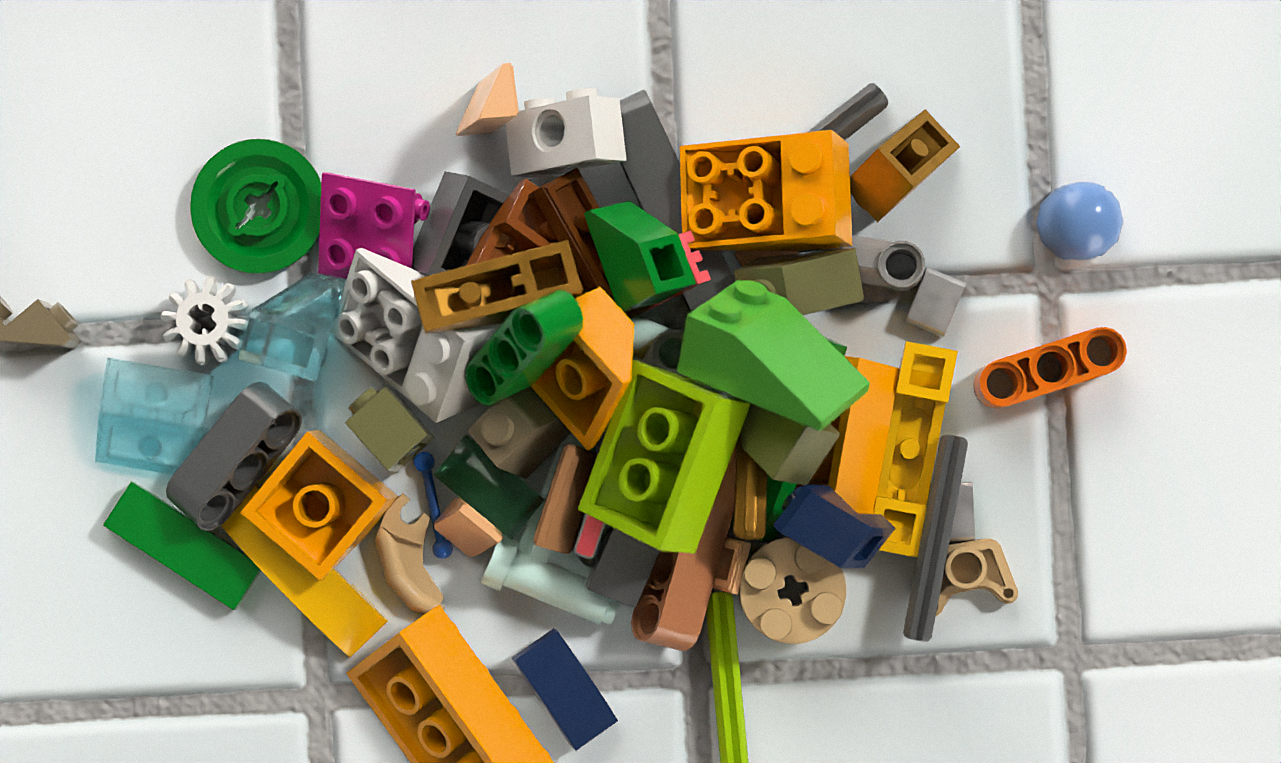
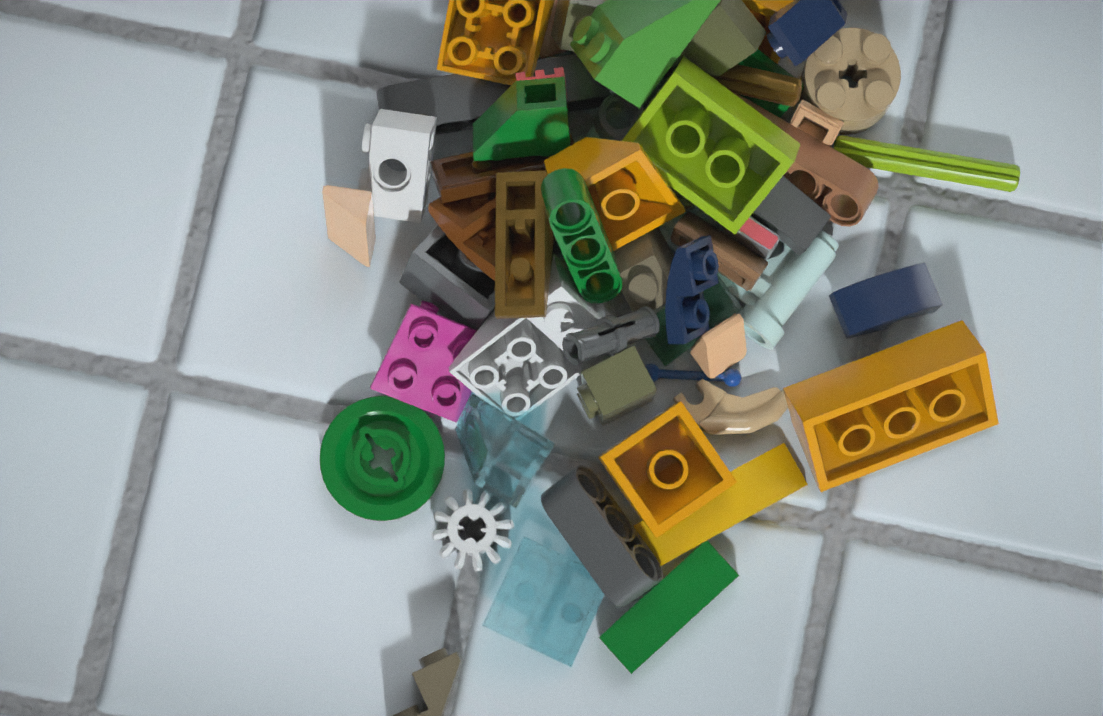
camera: 75 degrees left, 5 degrees down
(413, 385) = (610, 335): none -> dark grey pin
(493, 476) = (690, 274): none -> dark blue slope

